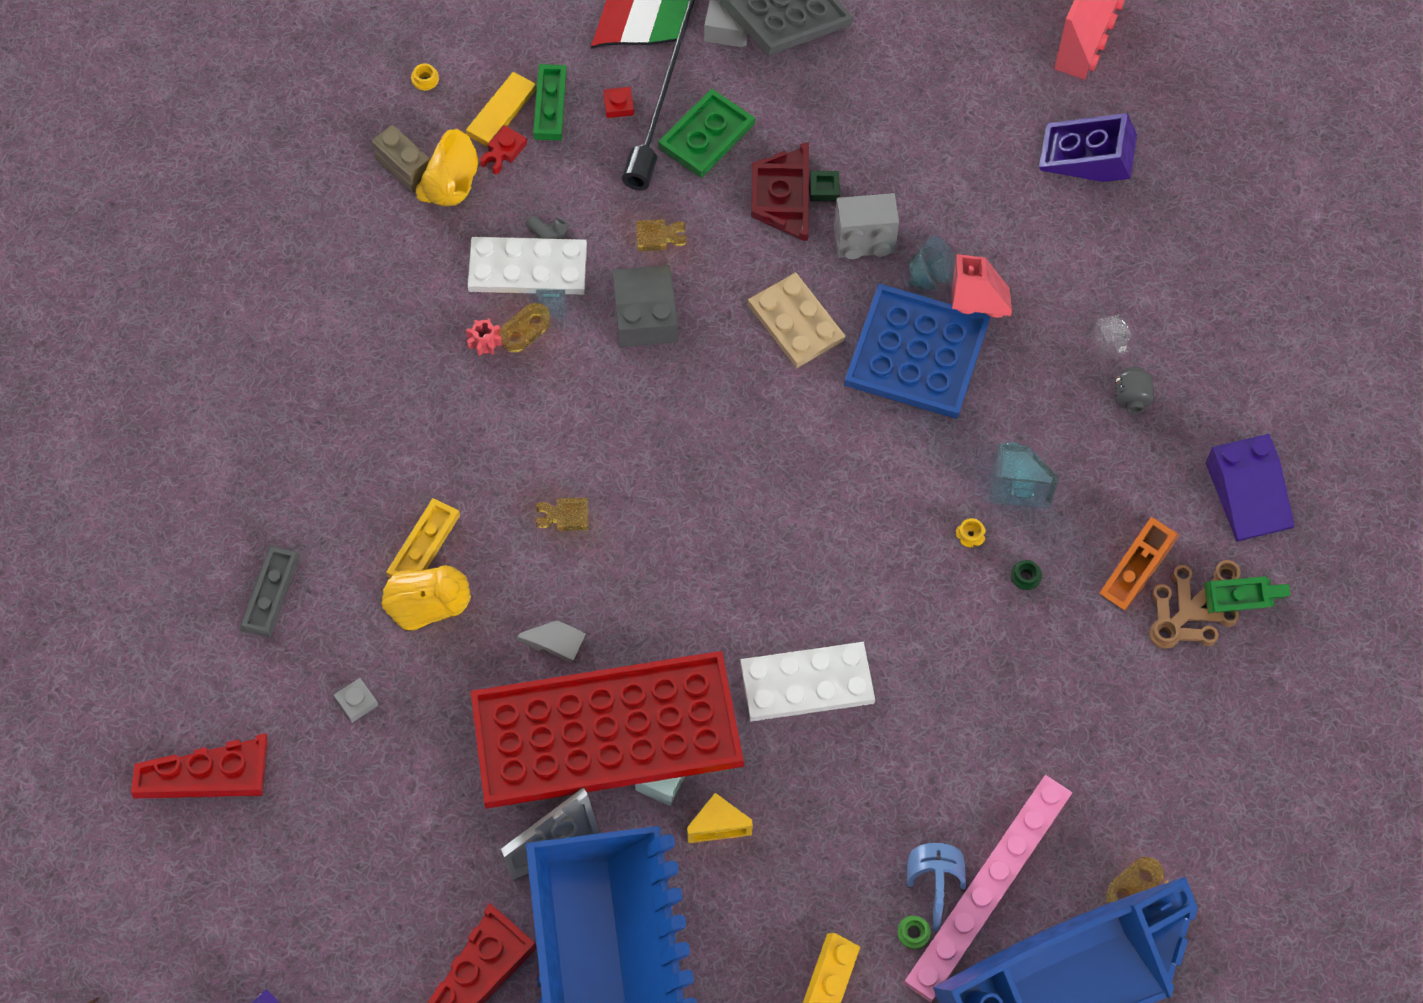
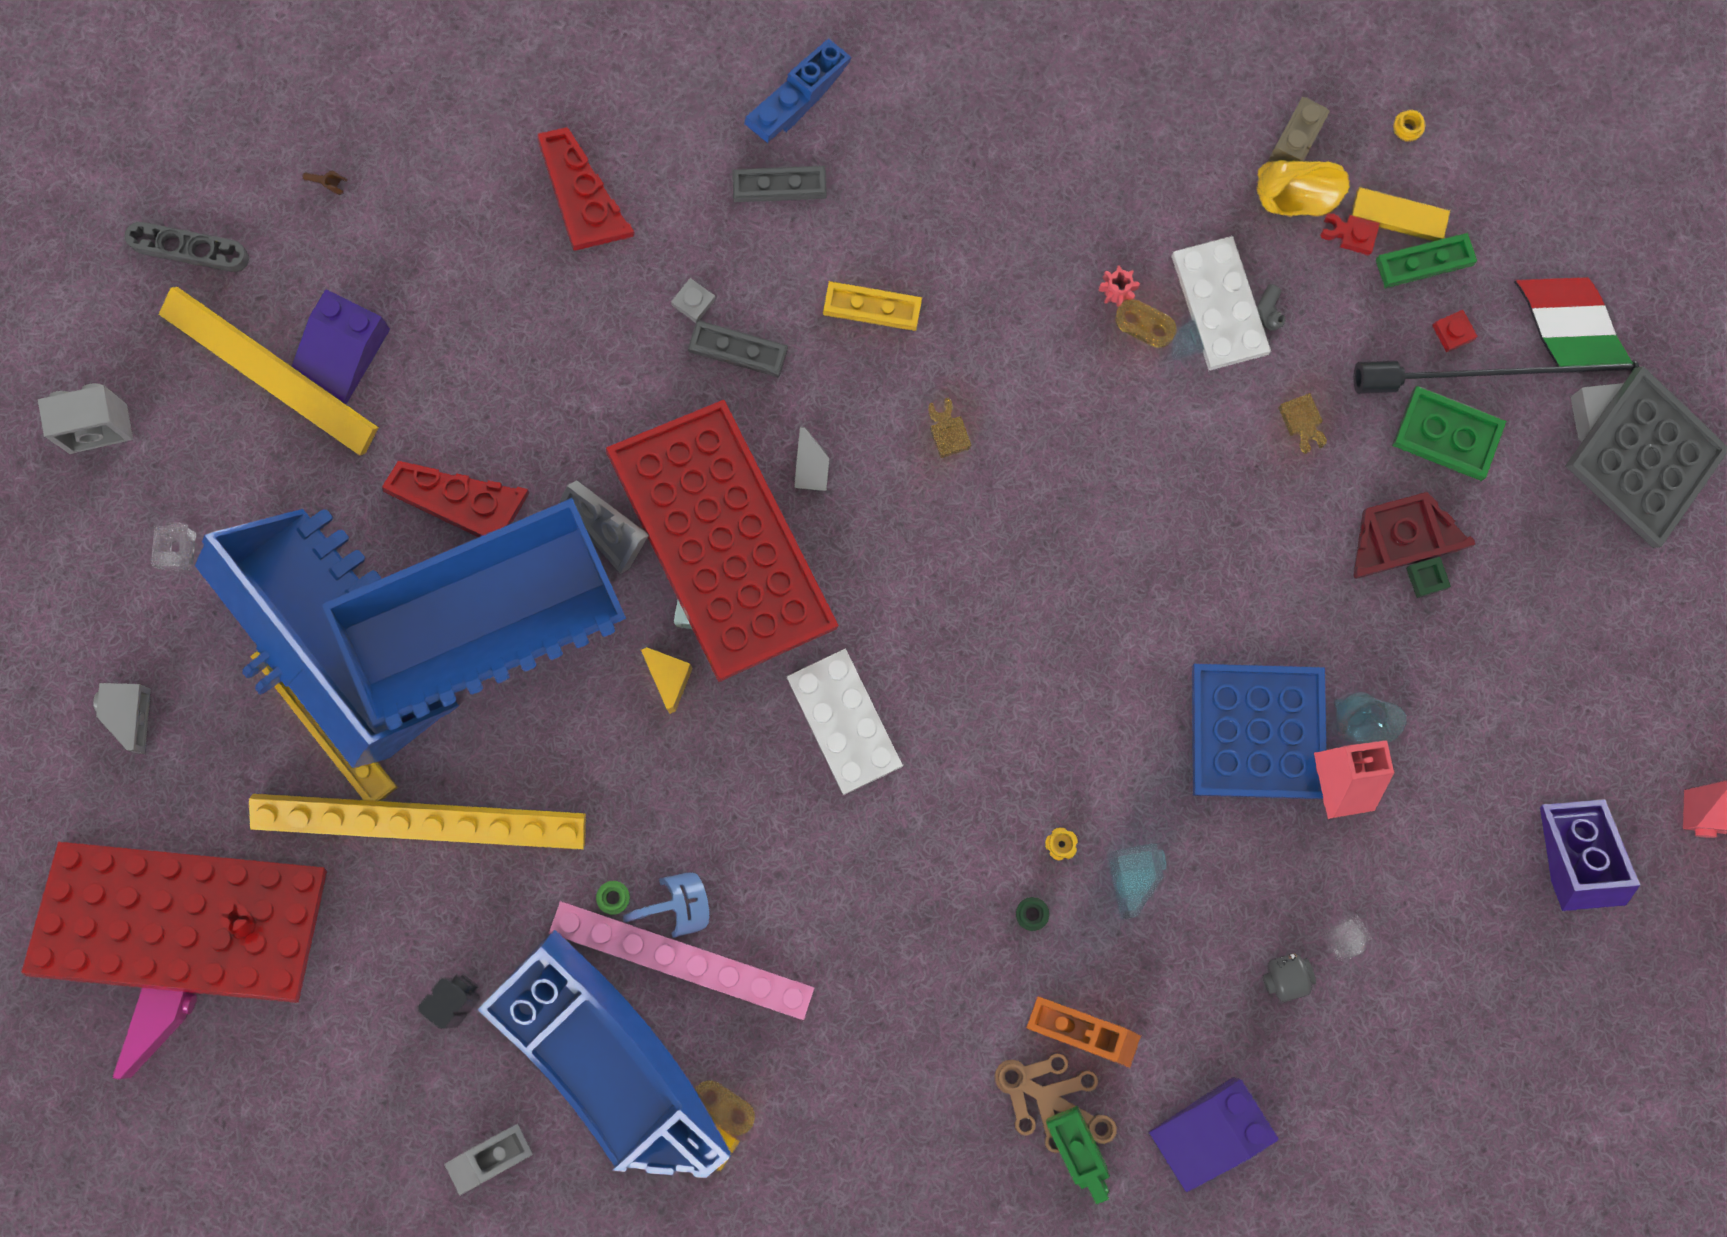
camera: 70 degrees right, 15 degrees up
(187, 545) = (800, 92): none -> blue slope
(418, 674) = (737, 348): none -> dark grey tile
(425, 596) = (816, 327): yellow hair -> none
(645, 306) = (1214, 433): dark grey slope -> none
(796, 320) = (1253, 594): tan plate -> none
(866, 225) = (1386, 633): light grey brick -> none

